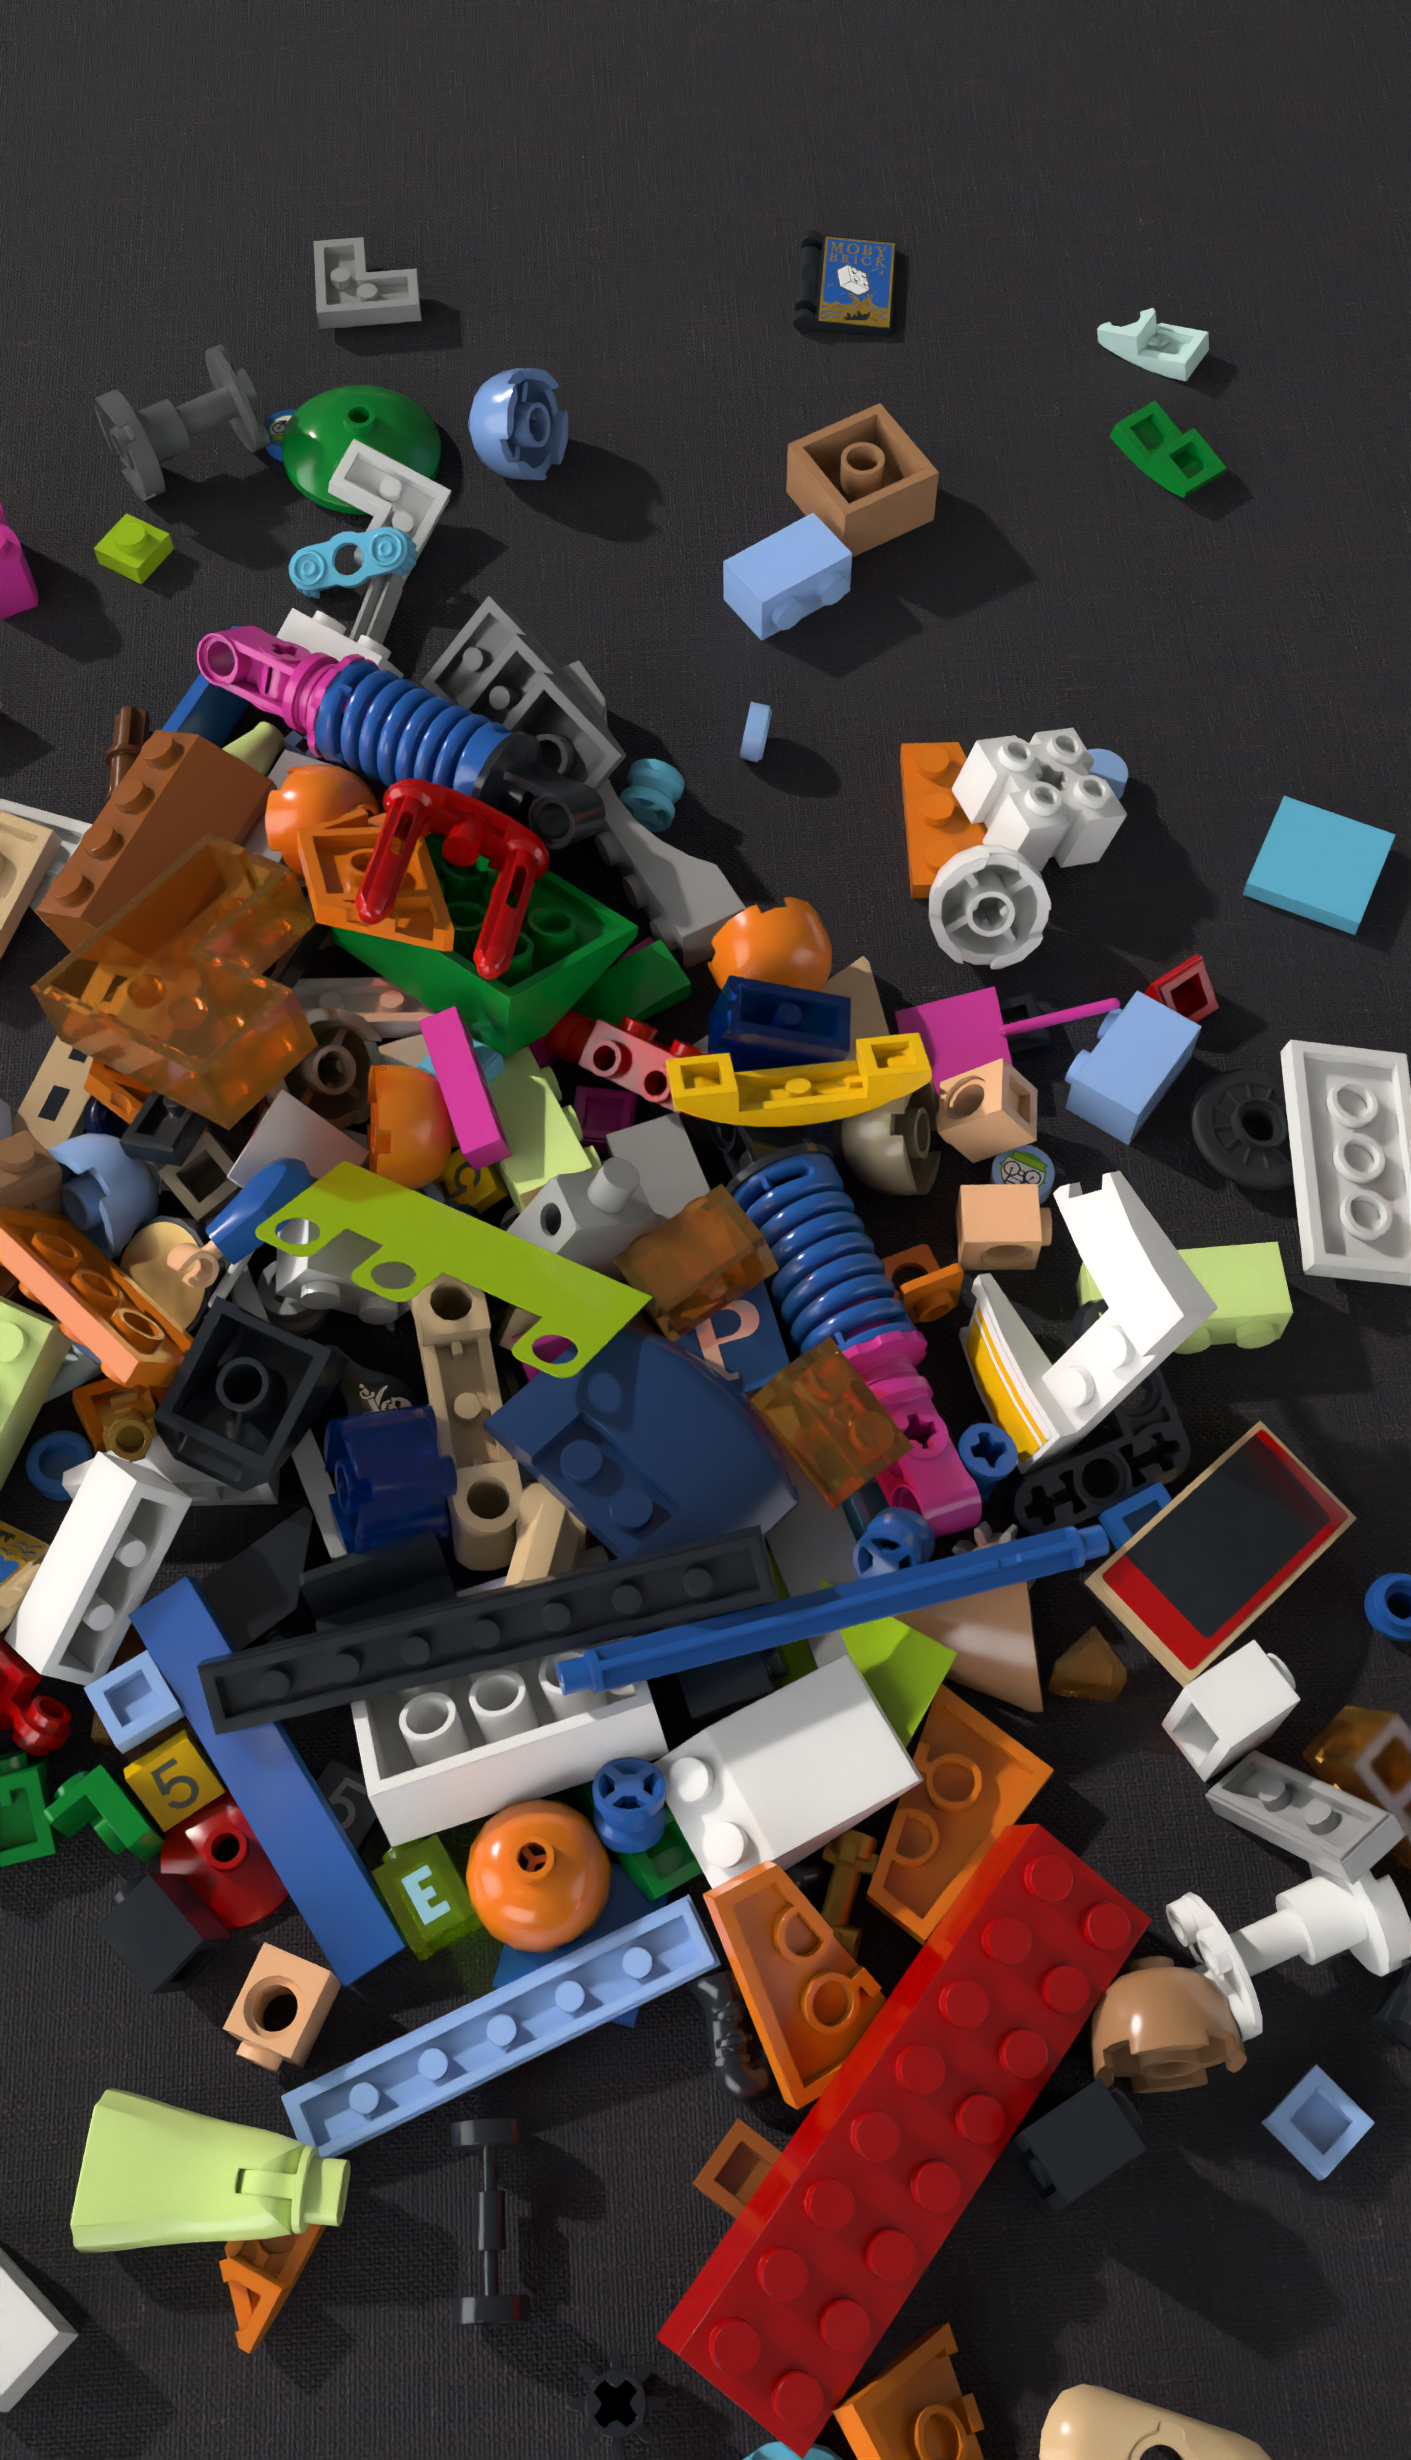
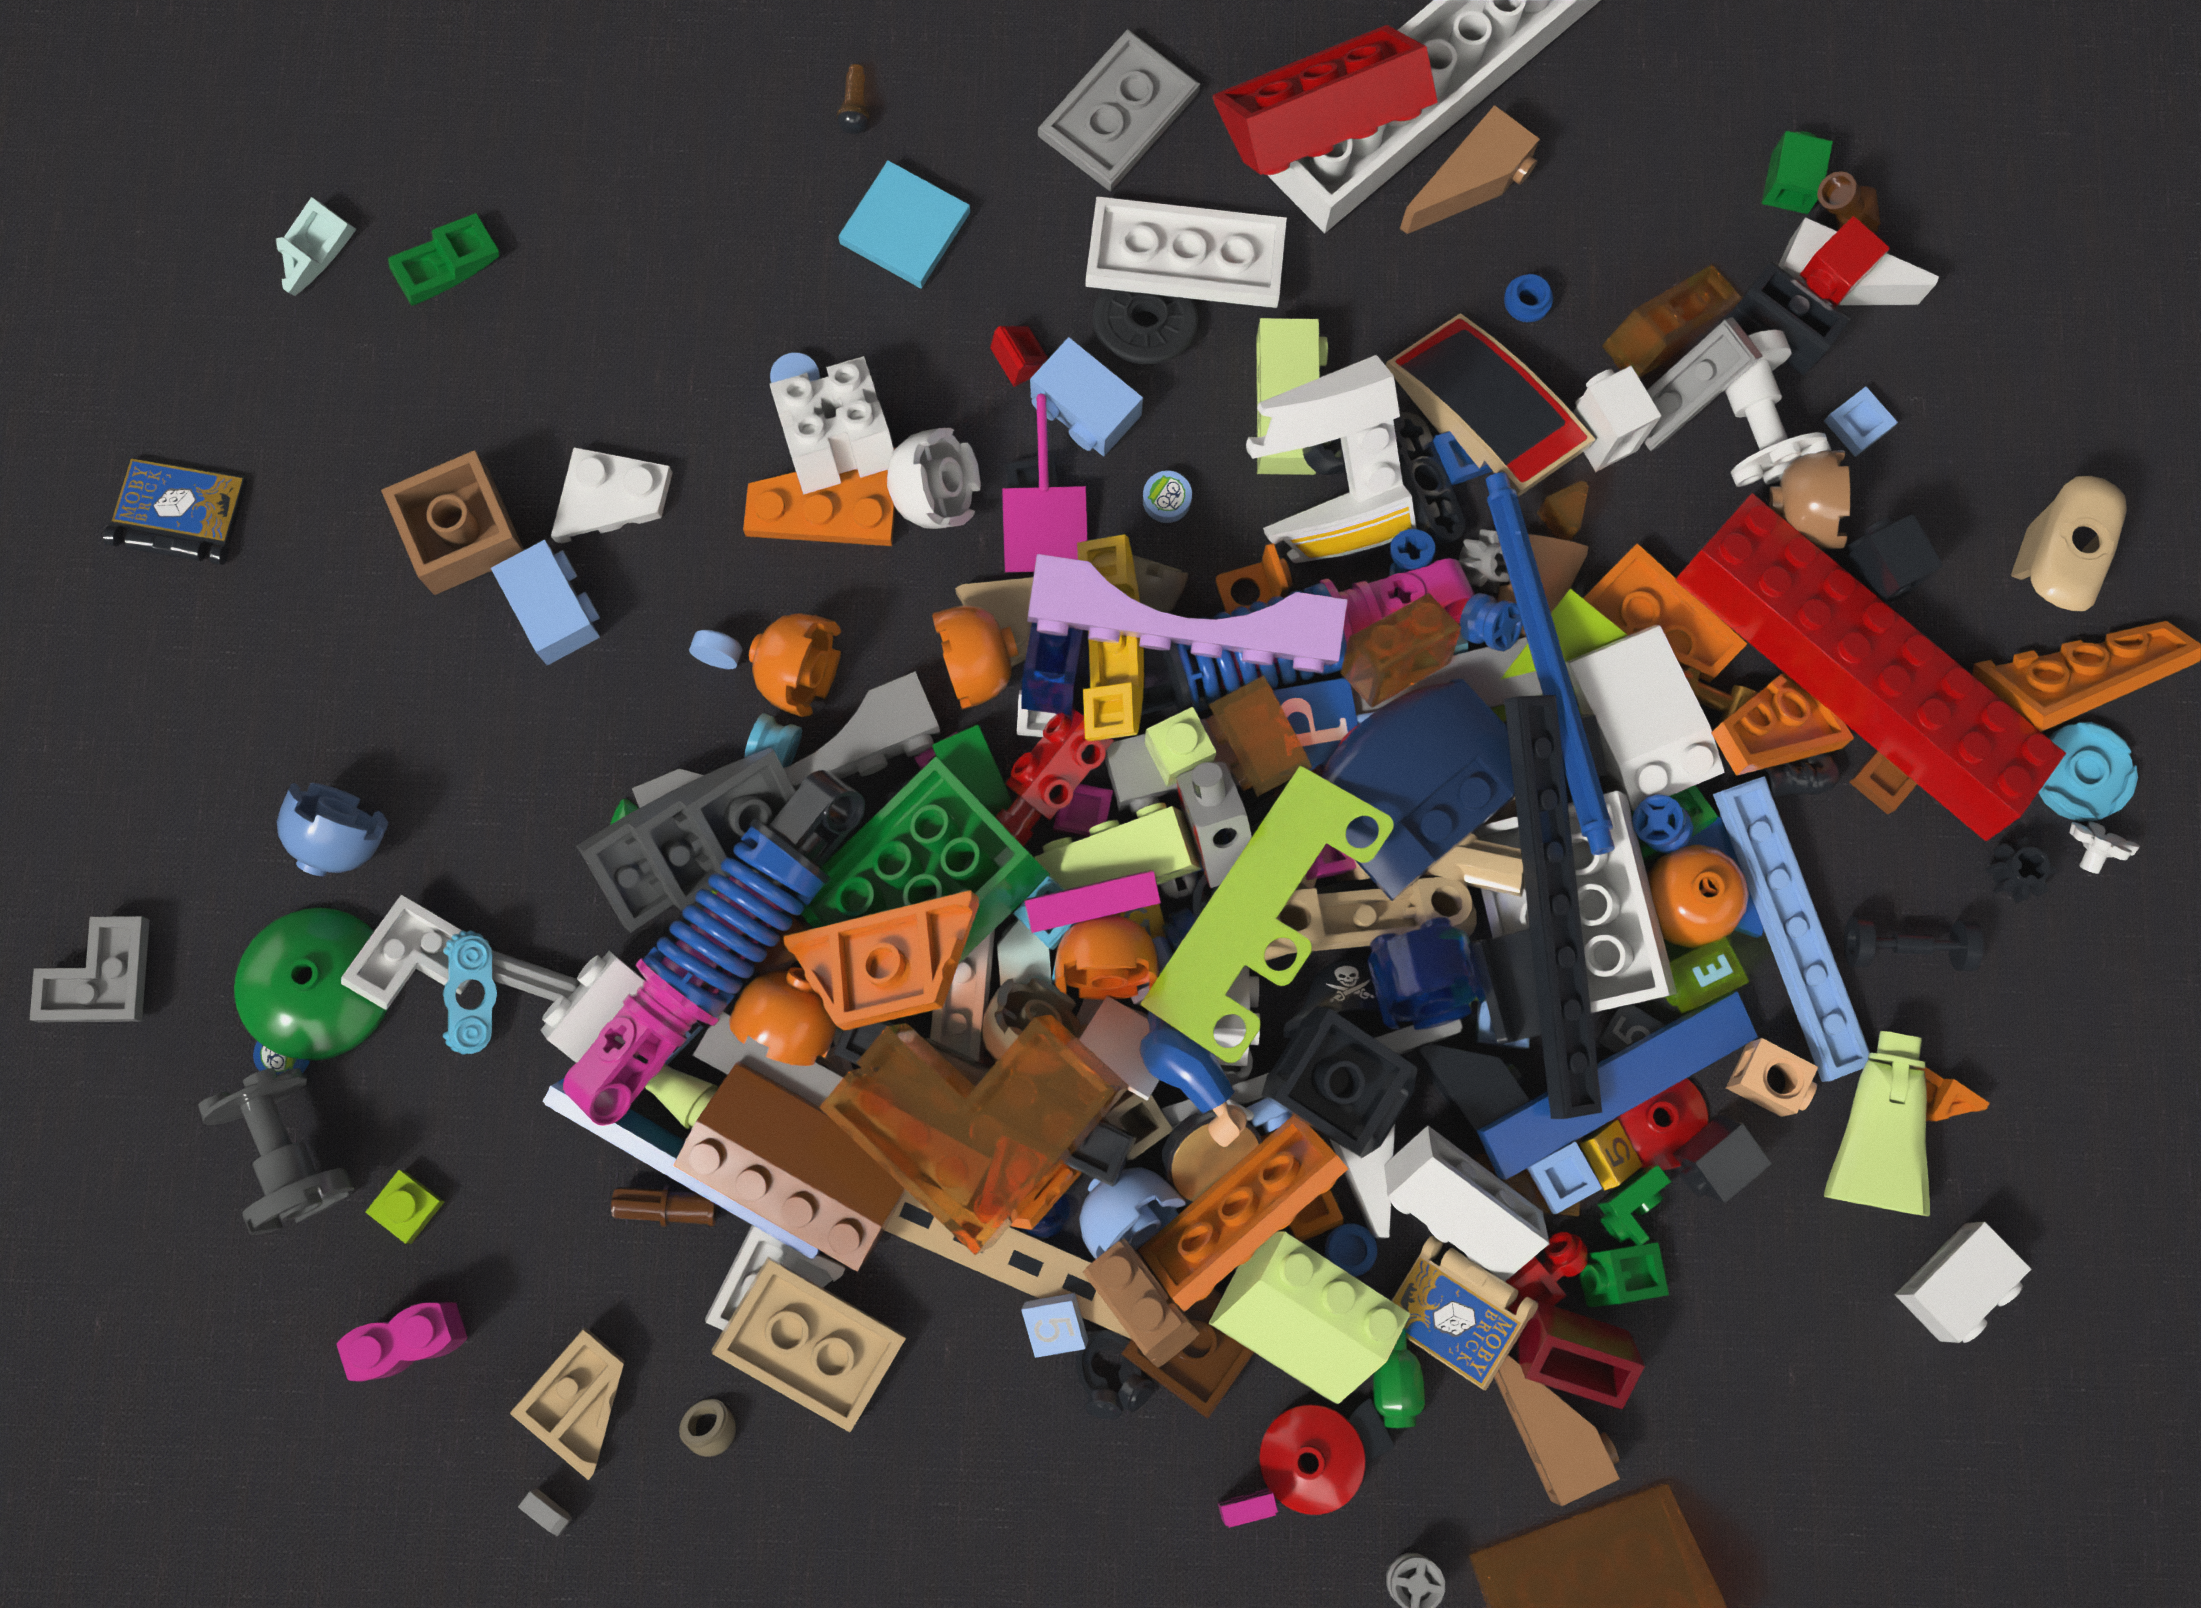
camera: 90 degrees left, 15 degrees up
(129, 1424) = (1372, 1175): pearl gold bar -> none
(468, 831) = (848, 877): red piece -> none
(672, 1169) = (1179, 745): none -> yellowish green brick
(743, 799) = (795, 661): none -> orange cylinder
(832, 1266) = (1077, 596): none -> lavender arch
(925, 624) = (609, 492): none -> white wing
(987, 1111) = (1127, 491): light nougat brick -> none
(1001, 1226) = (1216, 517): light nougat brick -> none

